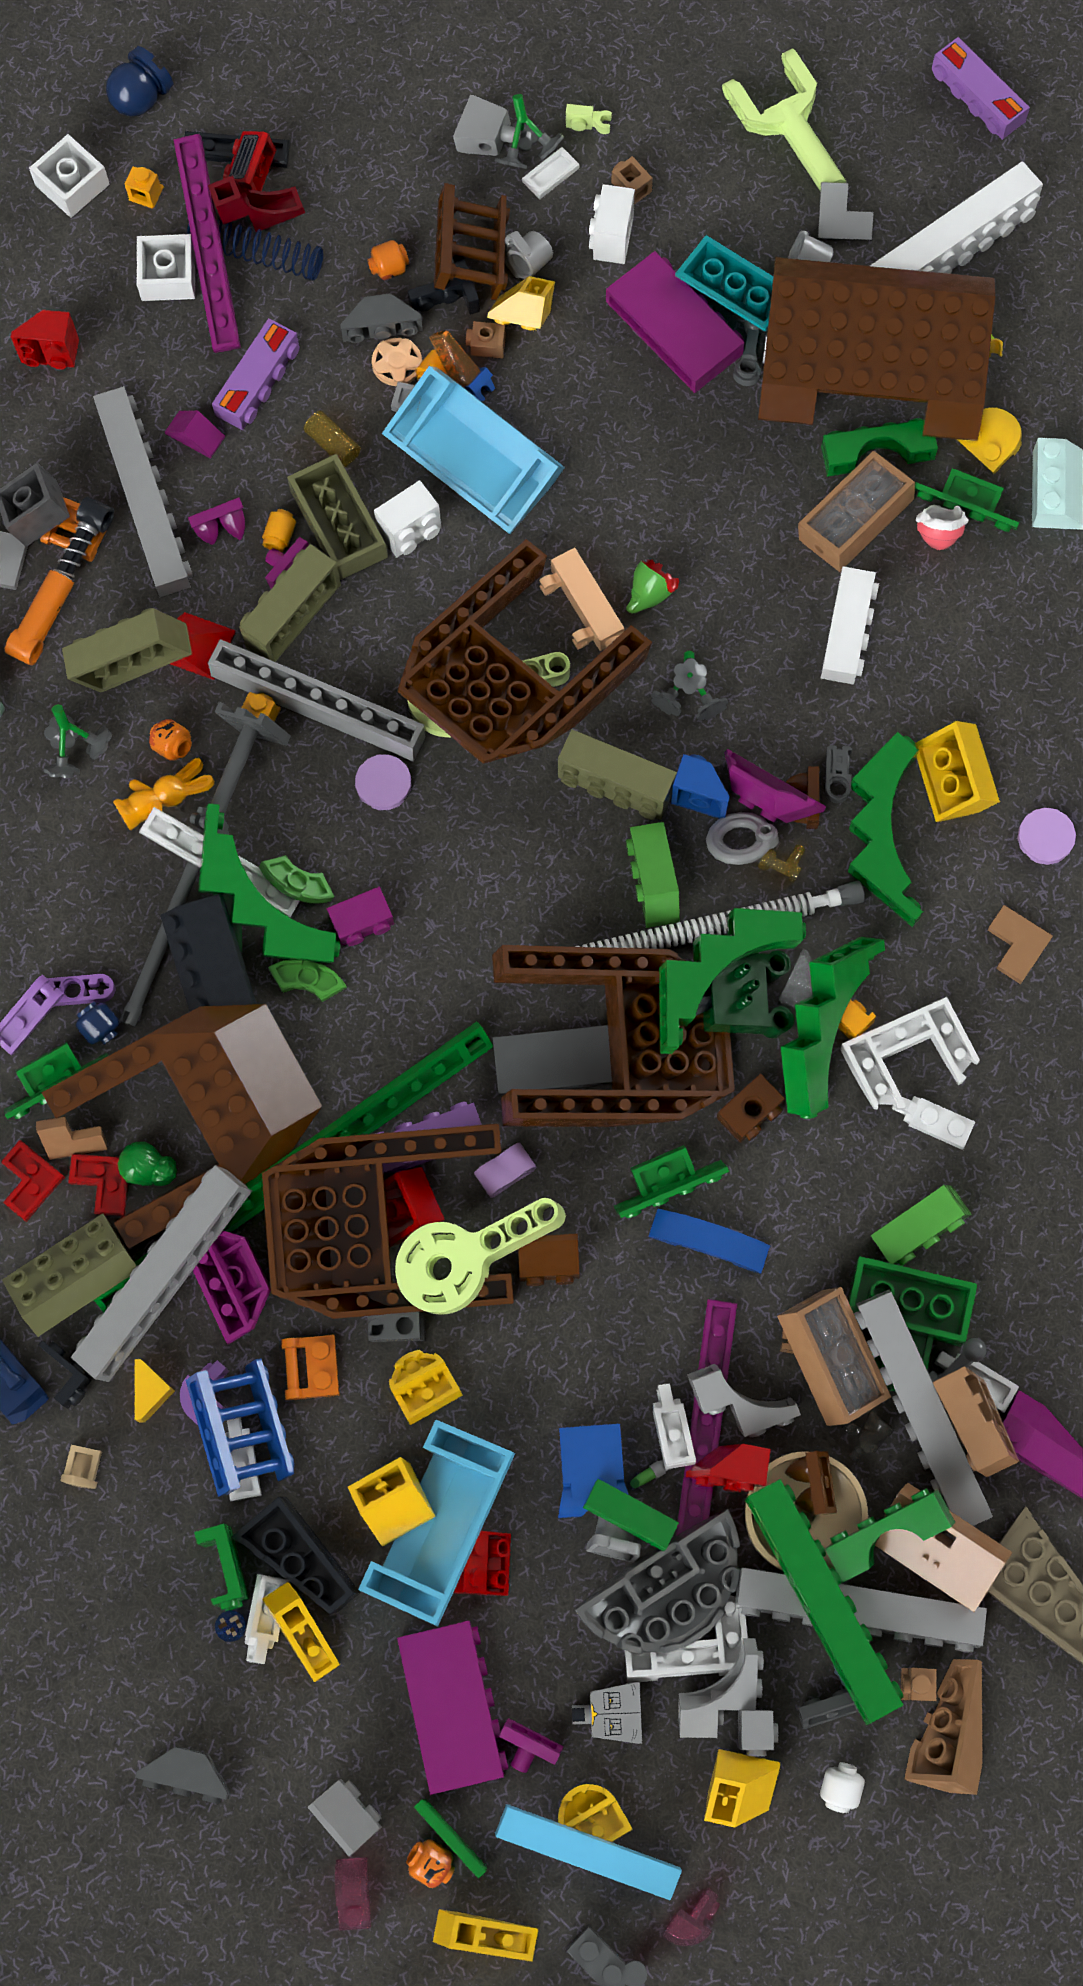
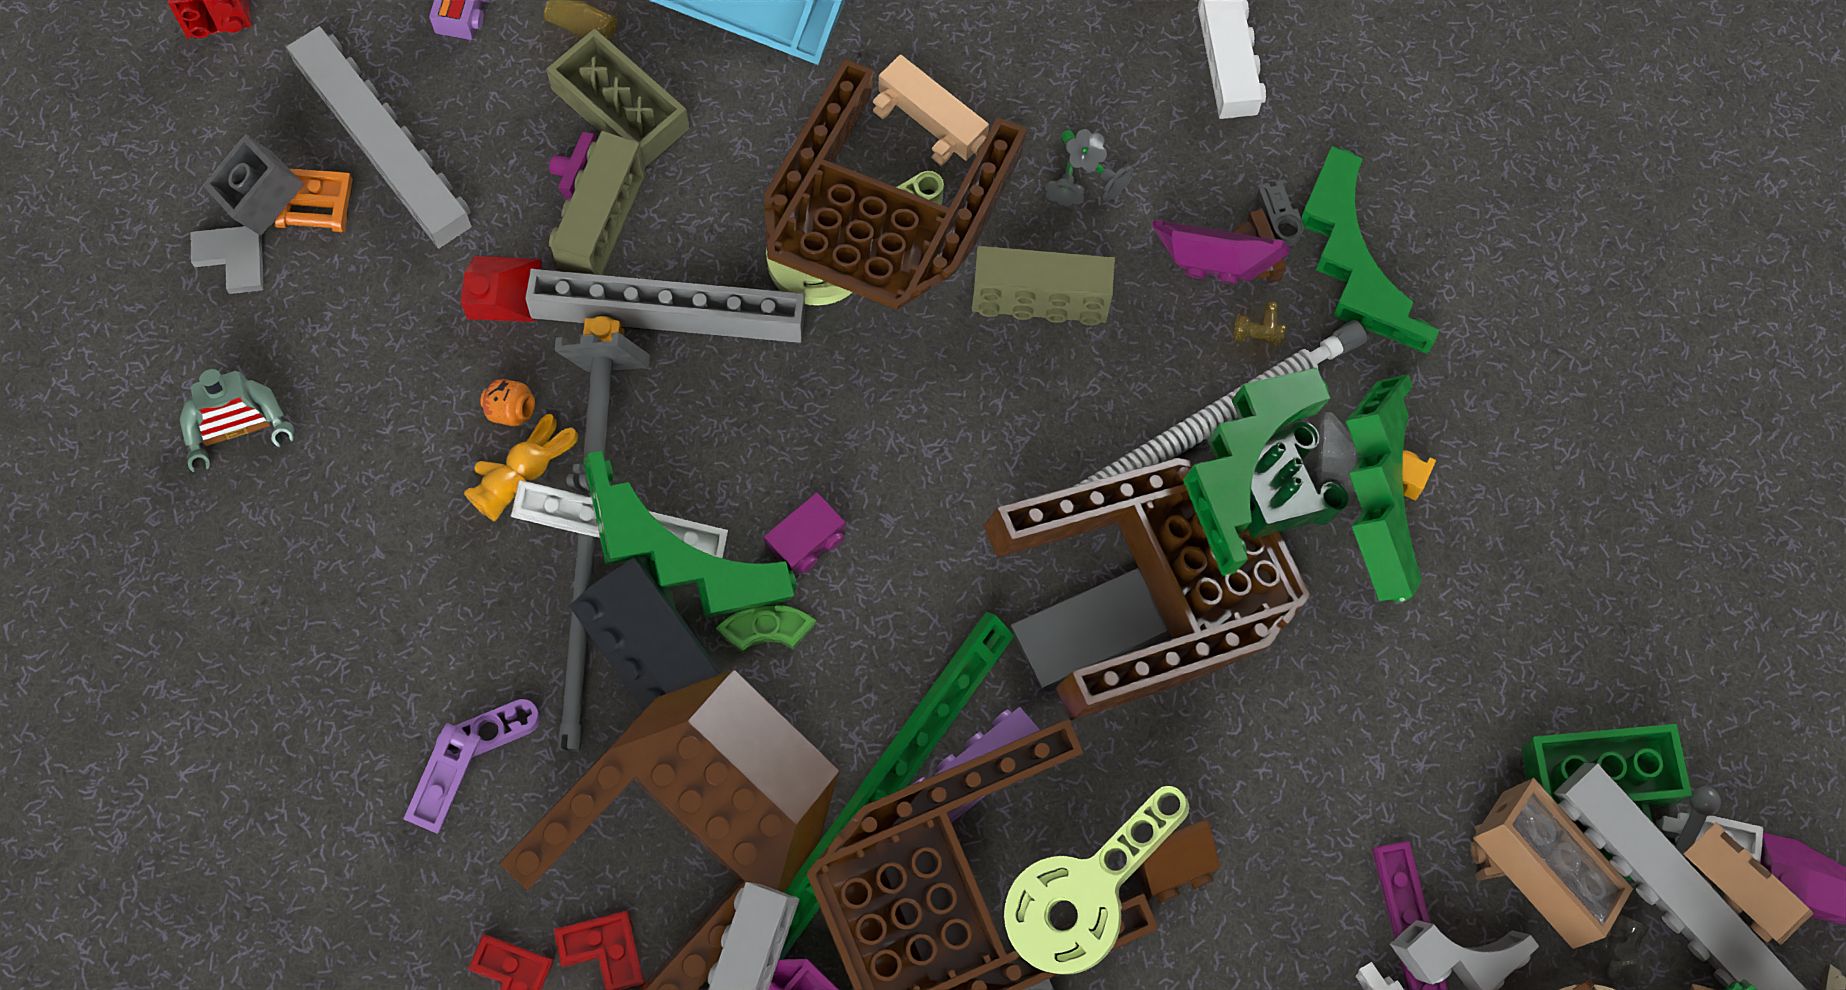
camera: 25 degrees left, 5 degrees down
(27, 640) = (298, 339): piece -> none
(43, 1074) = (489, 842): green bracket -> none
(62, 1142) = (538, 918): medium nougat tile -> none
(63, 734) = (375, 434): dark grey plant -> none
(97, 1023) = (533, 760): dark blue head -> none
(126, 650) = (424, 312): olive brick -> none
(145, 1166) = (649, 914): green hair -> none
(195, 432) = (418, 55): magenta slope -> none
(228, 513) = (488, 131): magenta tile -> none
(278, 530) = (554, 133): light orange brick -> none
(296, 882) = (715, 519): bright green tile -> none
(383, 782) = (774, 376): lavender tile -> none
(408, 519) = (702, 75): white brick -> none
(409, 1204) = (991, 851): red slope -> none
(505, 1170) = (1083, 775): lavender axle -> none
(650, 586) = (999, 73): bright green hat -> none
(655, 874) = (1126, 382): bright green wedge -> none
(665, 1177) = (1271, 722): green bracket -> none
(699, 787) = (1144, 270): blue slope -> none
(709, 1239) = (1346, 776): blue slope -> none
(756, 1093) = (1343, 591): reddish brown brick -> none
(765, 835) = (1233, 305): light grey piece -> none
(921, 1225) = (1582, 679): bright green wedge -> none
(933, 1021) = (1499, 447): white wedge -> none
(937, 1121) = (1542, 557): white hinge -> none
(956, 772) = (1409, 172): yellow slope -> none
(1025, 939) = (1556, 328): medium nougat tile -> none
(1046, 836) = (1531, 211): lavender tile -> none

